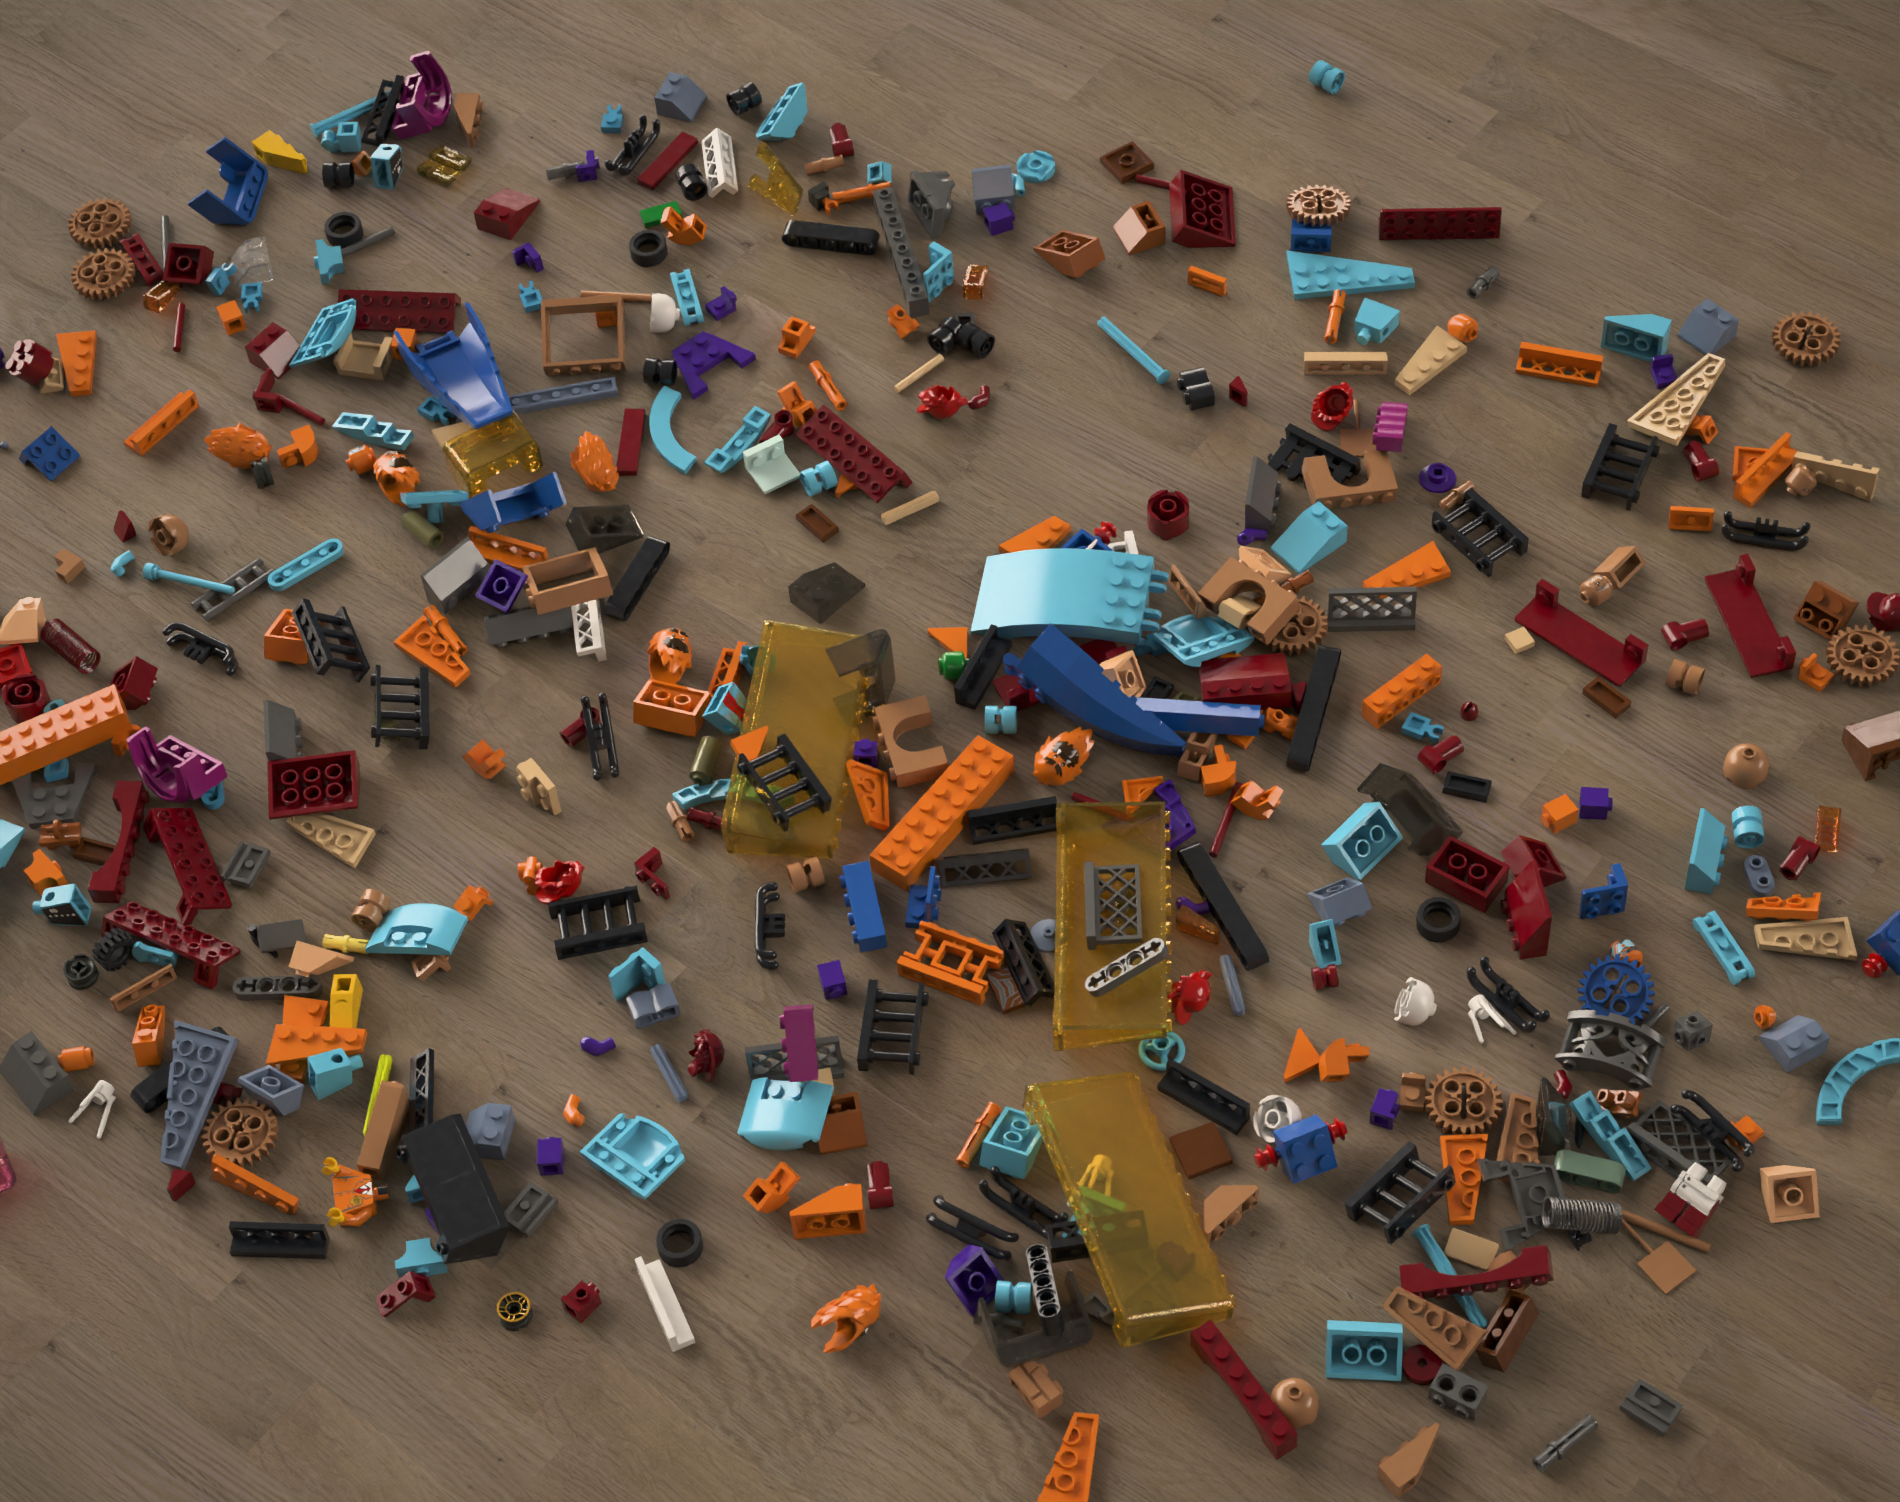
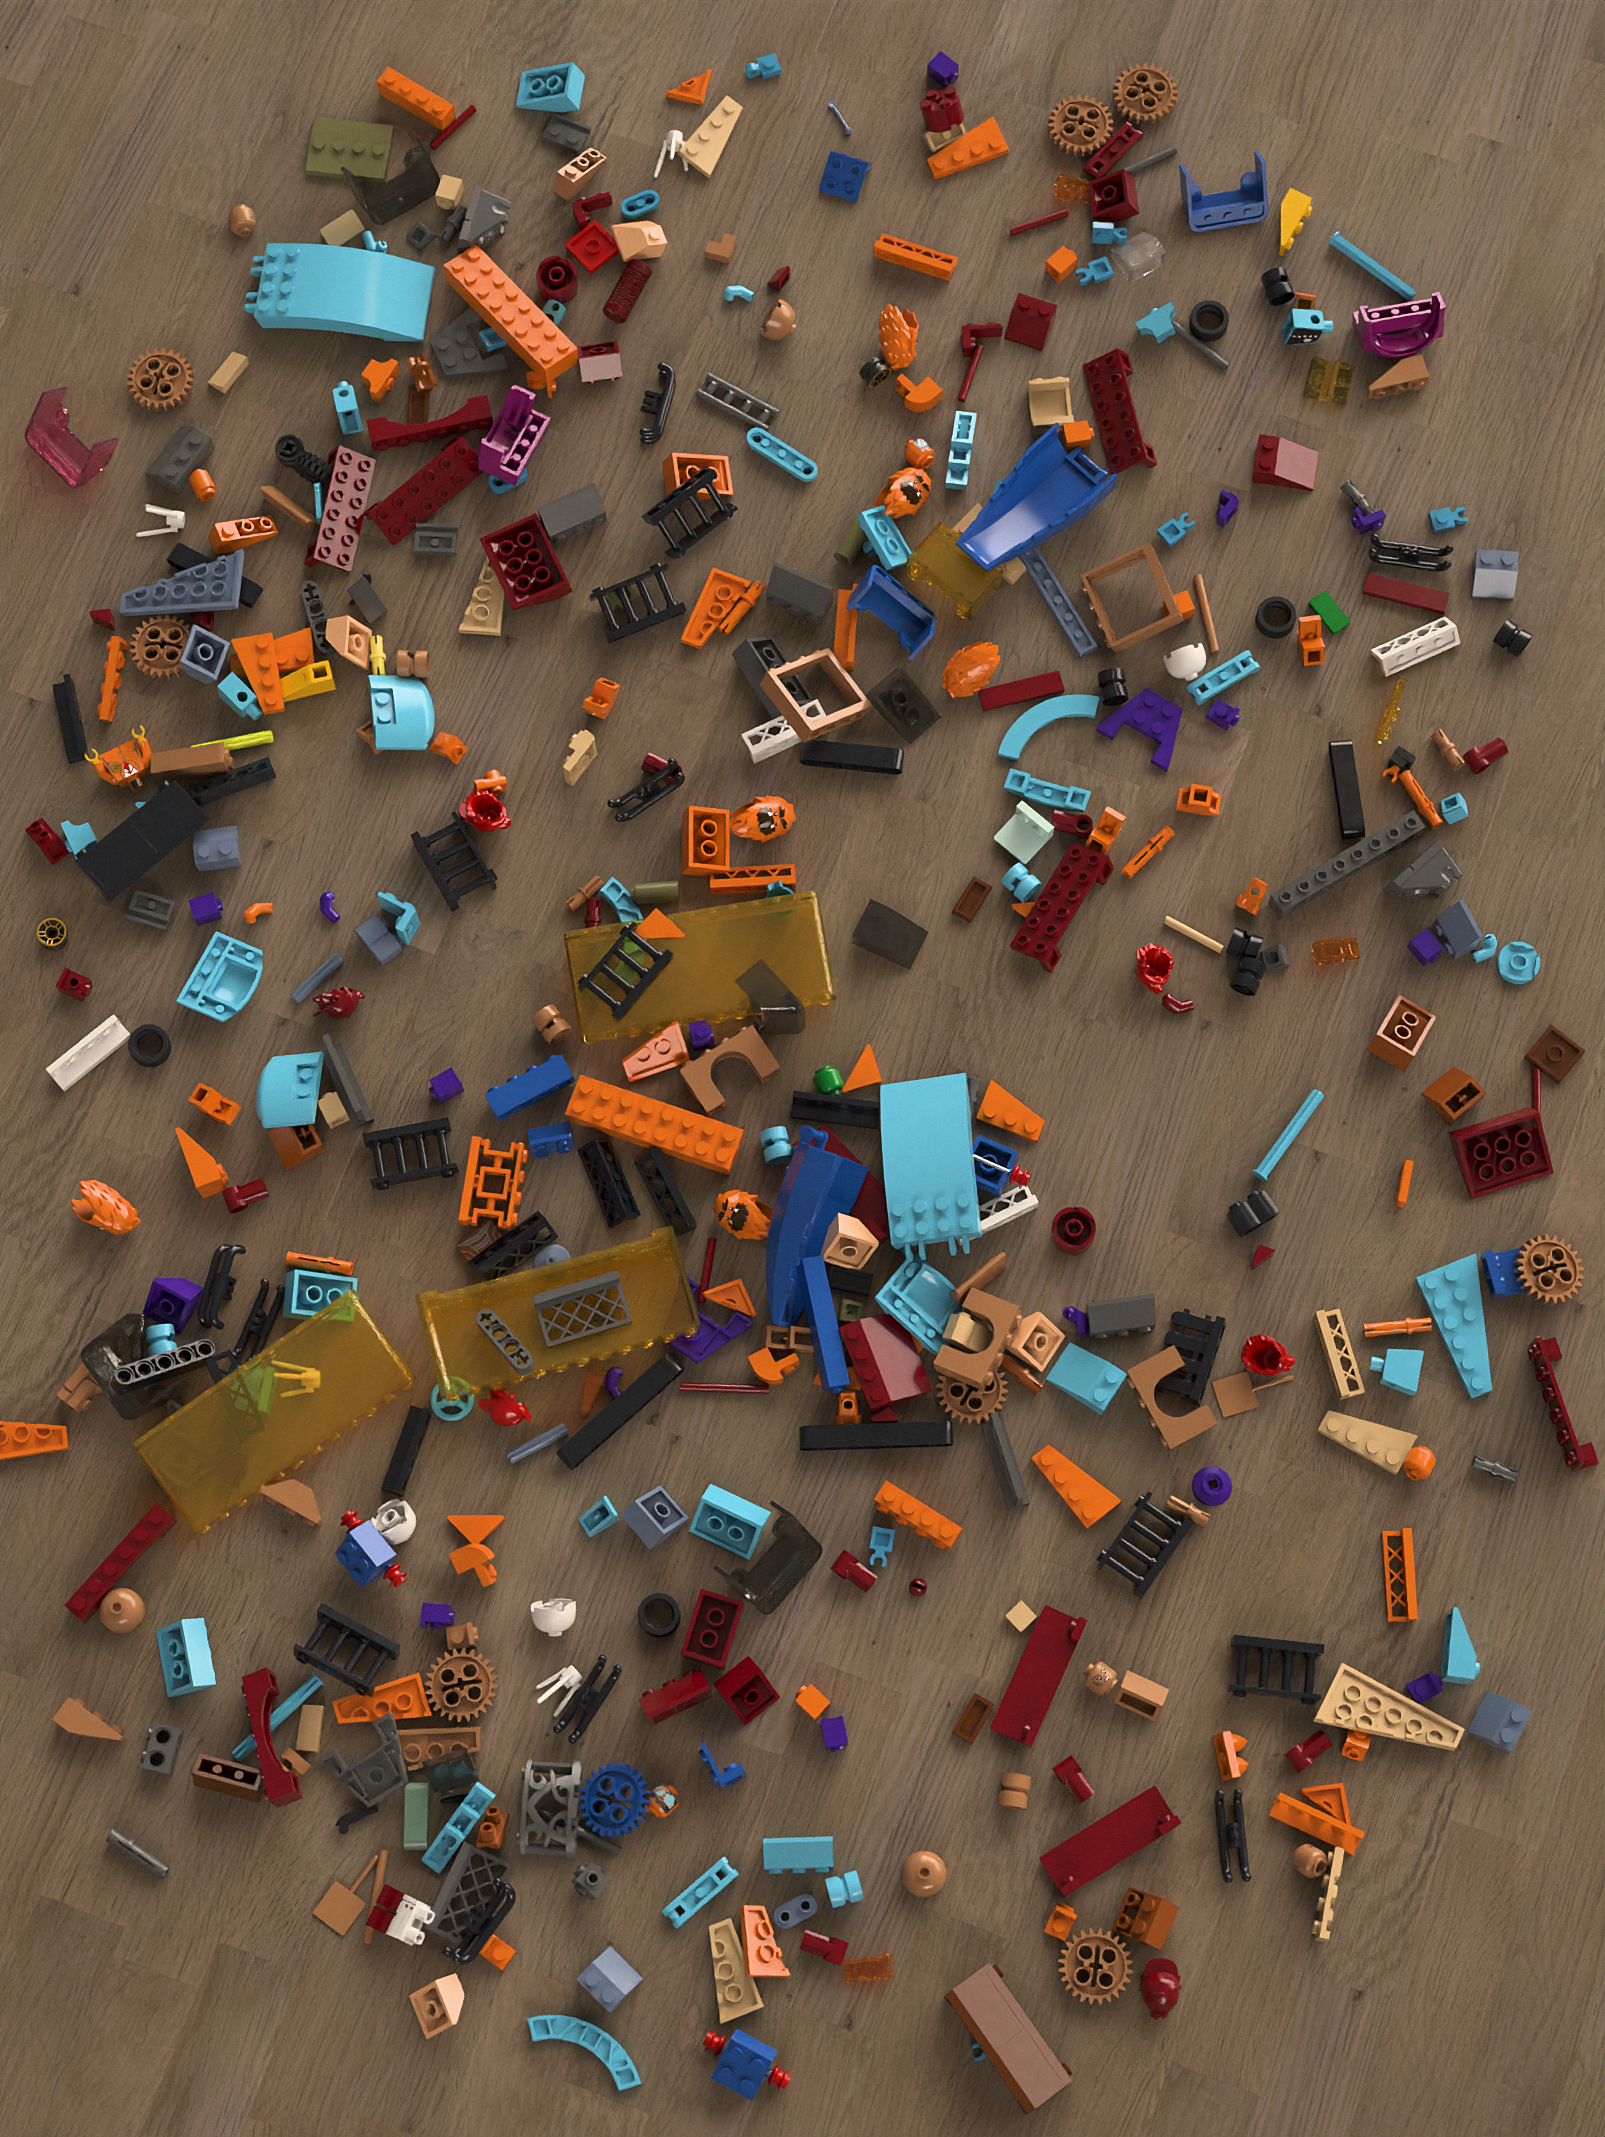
camera: 70 degrees right, 20 degrees up
(152, 572) = (734, 325): medium azure piece -> none
(327, 333) = (1058, 360): medium azure slope -> none
(347, 138) = (1329, 272): medium azure brick -> none
(388, 114) = (1378, 299): black fence -> none
(501, 586) = (790, 639): dark purple slope -> none
(646, 866) = (528, 884): dark red bracket -> none
(691, 182) = (1374, 629): black wheel -> none
(727, 709) = (707, 890): medium azure torso -> none
(767, 925) = (486, 1007): black piece -> none
(785, 115) = (1496, 686): medium azure wedge -> none
(799, 1043) = (336, 1077): magenta wedge -> none
(910, 507) = (1015, 980): tan axle -> none
(940, 271) = (1325, 916): medium azure bracket -> none
(1201, 1150) = (355, 1462): reddish brown tile -> none
(1255, 801) = (747, 1410): orange brick -> none
(1324, 977) = (564, 1525): dark red wheel -> none
(1390, 426) = (1249, 1422): magenta brick -> none
(1415, 1373) = (177, 1708): dark red piece -> none
(1439, 1329) = (213, 1714): medium nougat wing -> none
(1467, 786) = (825, 1605): black tile -> none
(1564, 1086) = (503, 1775): dark red arm -> none
(1609, 1208) = (363, 1844): dark grey piece -> none
(1651, 1407) = (189, 1922): dark grey plate -> none
(1764, 1016) = (628, 1946): orange plate -> none
(1819, 345) = (1521, 1809): medium nougat gear -> none

